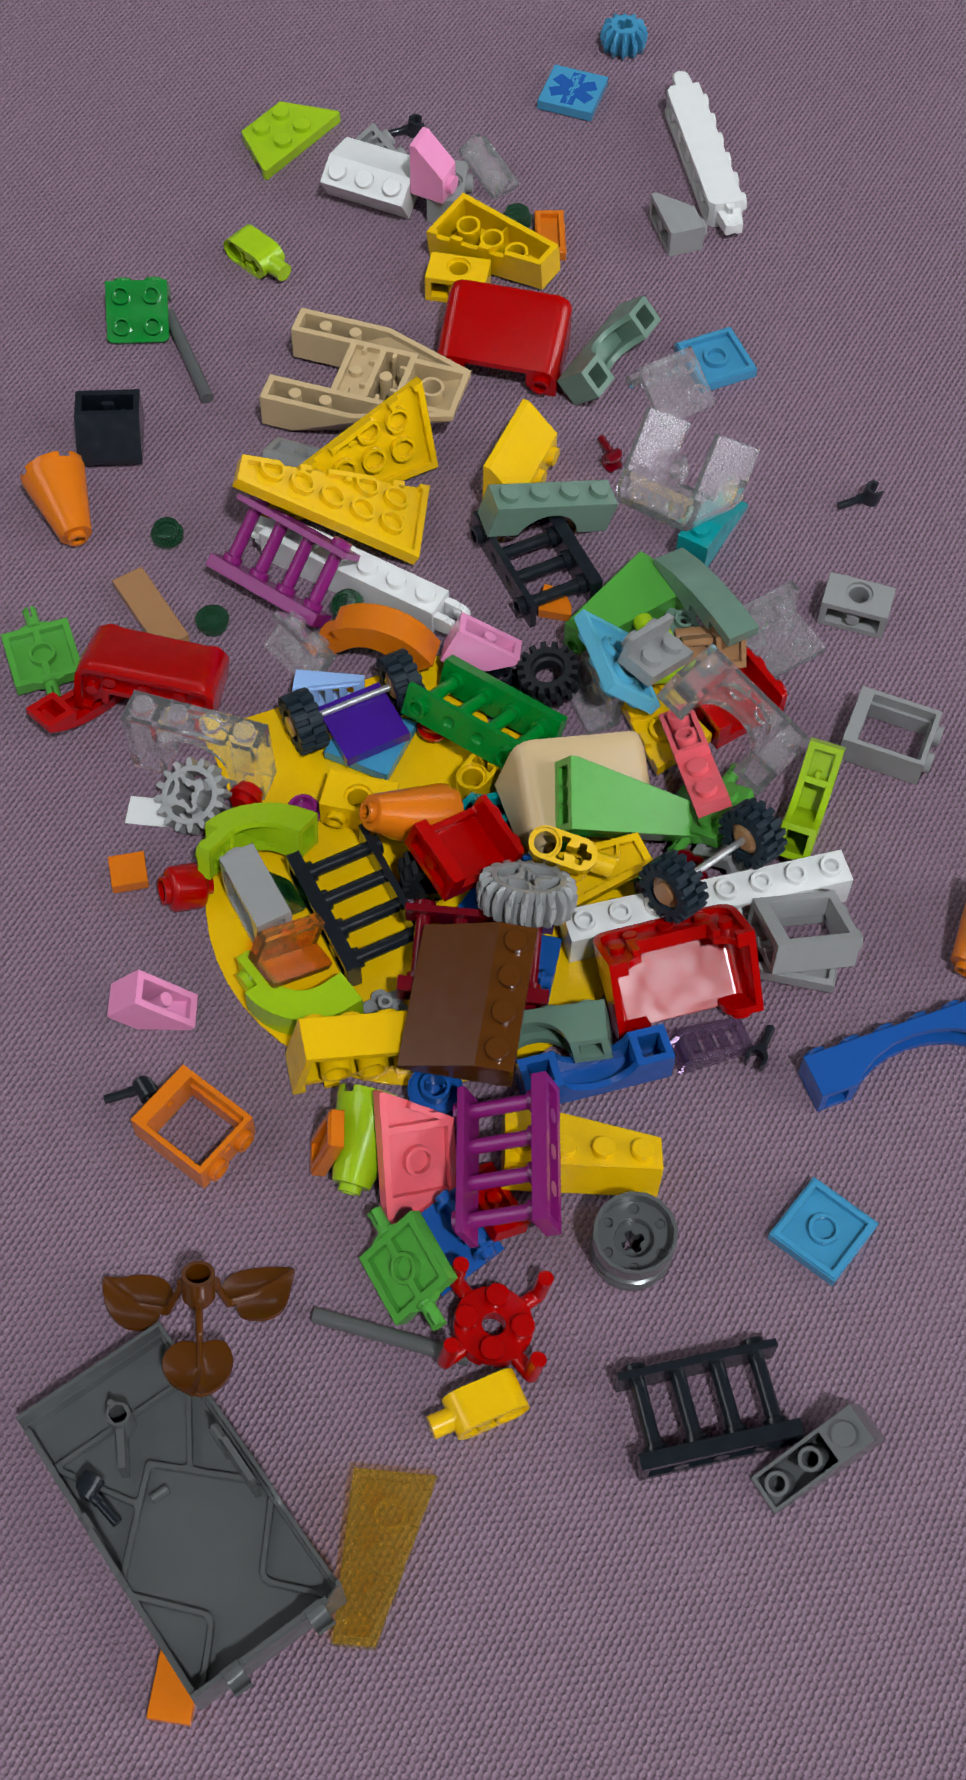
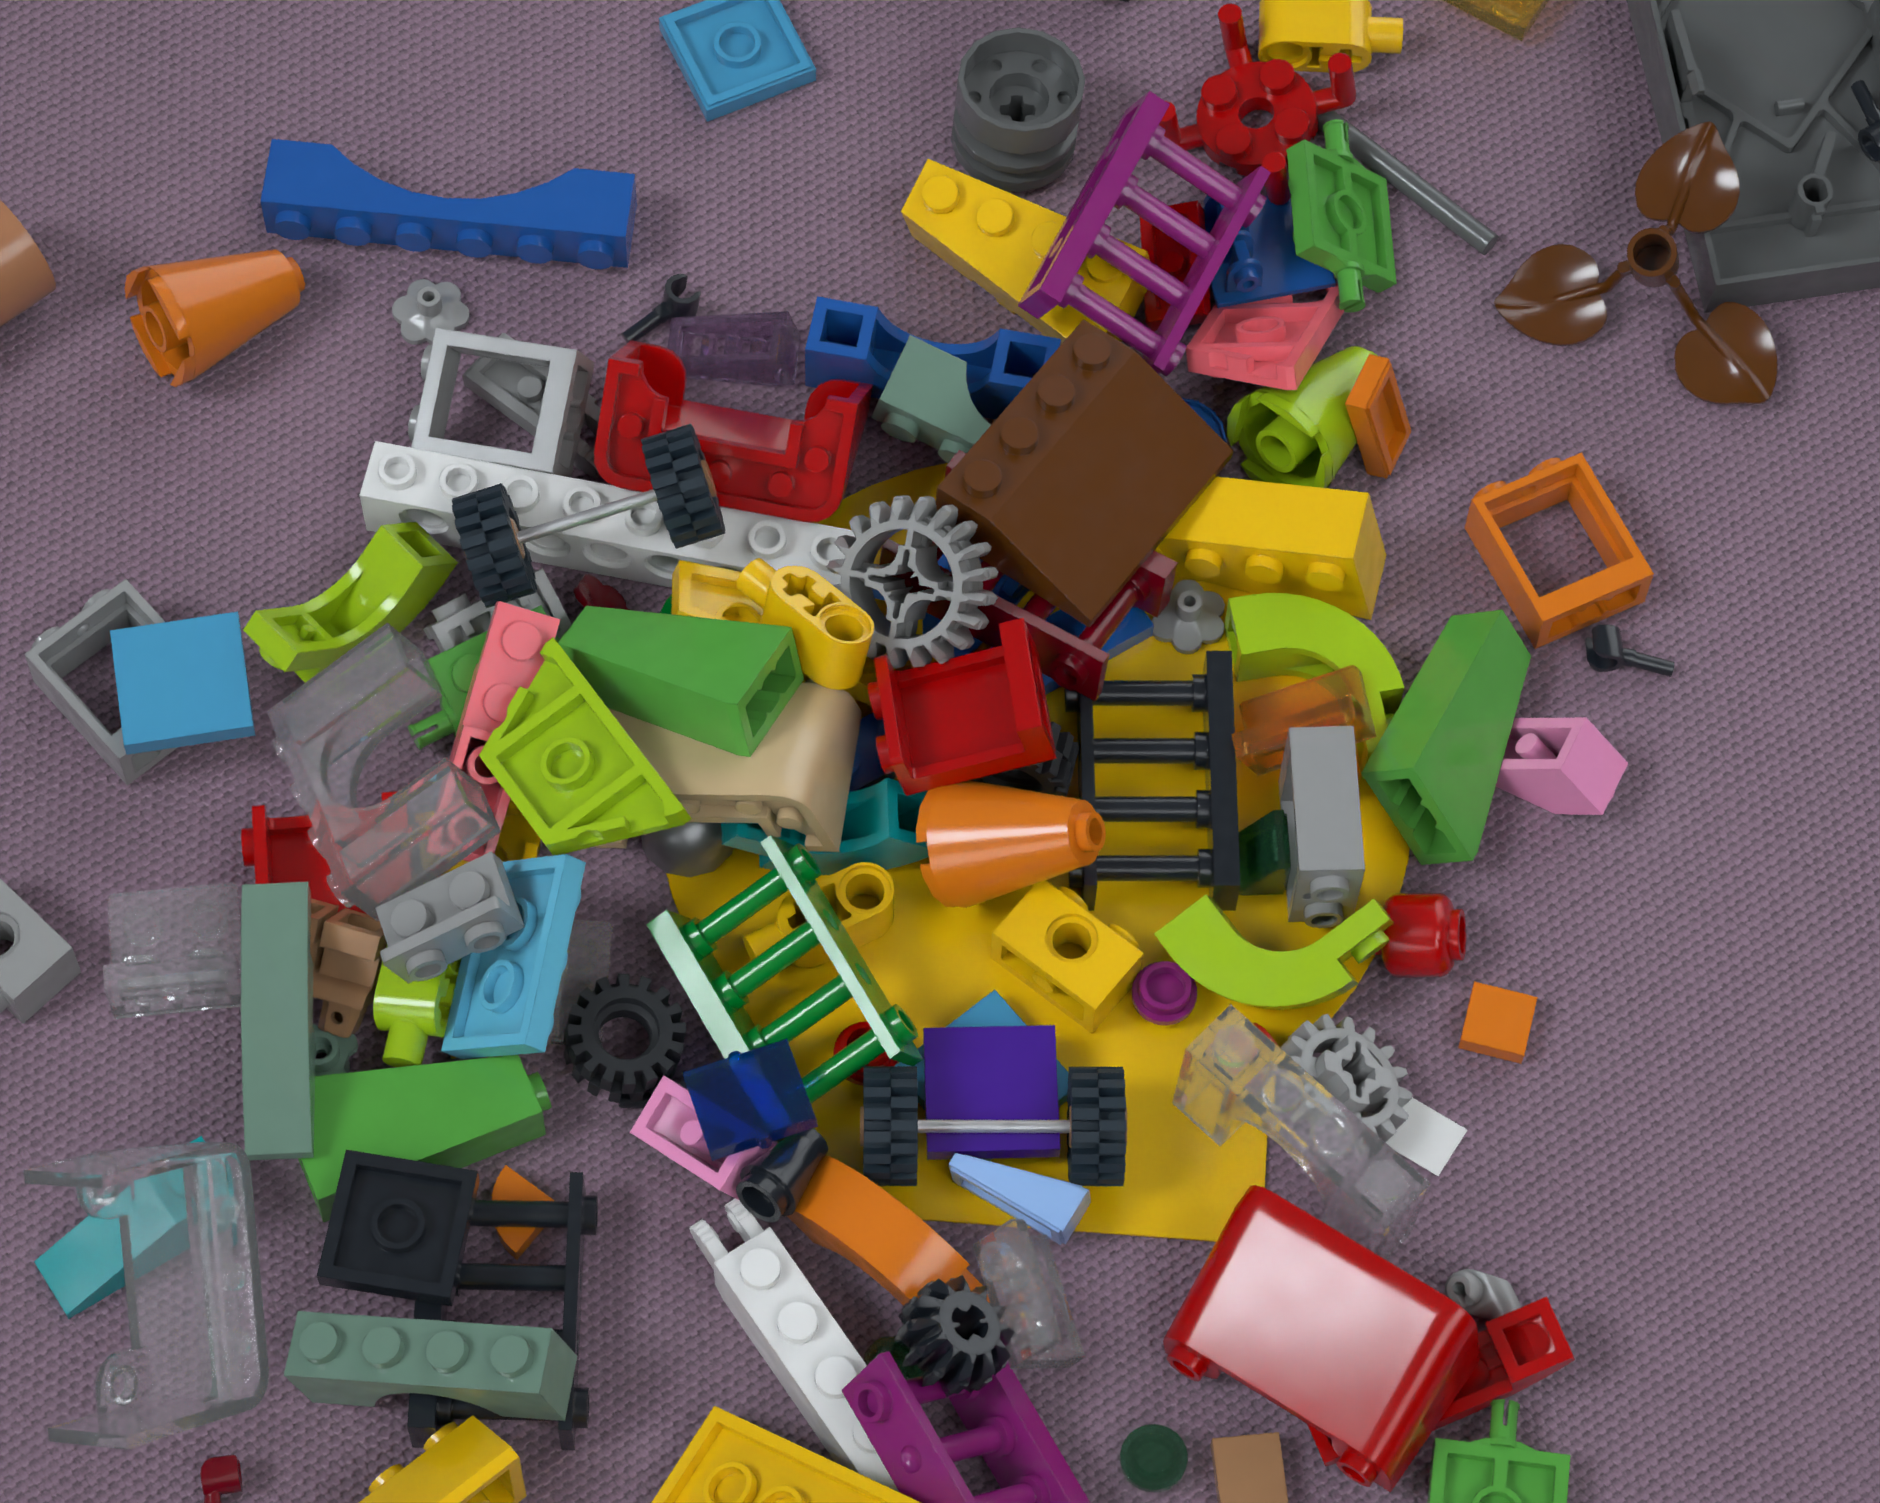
camera: 155 degrees left, 5 degrees up
(81, 747) = (1481, 1293): none -> light grey arm
(209, 986) = (1450, 738): none -> bright green slope
(320, 589) = (954, 1335): none -> black gear
(438, 630) = (780, 1176): none -> black cone
(469, 647) = (749, 1099): none -> clear blue piece
(595, 543) = (398, 1228): none -> black plate
(639, 731) = (575, 764): none -> lime wing
(859, 723) = (182, 683): none -> dark azure tile
(882, 996) = (429, 308): none -> light grey plant

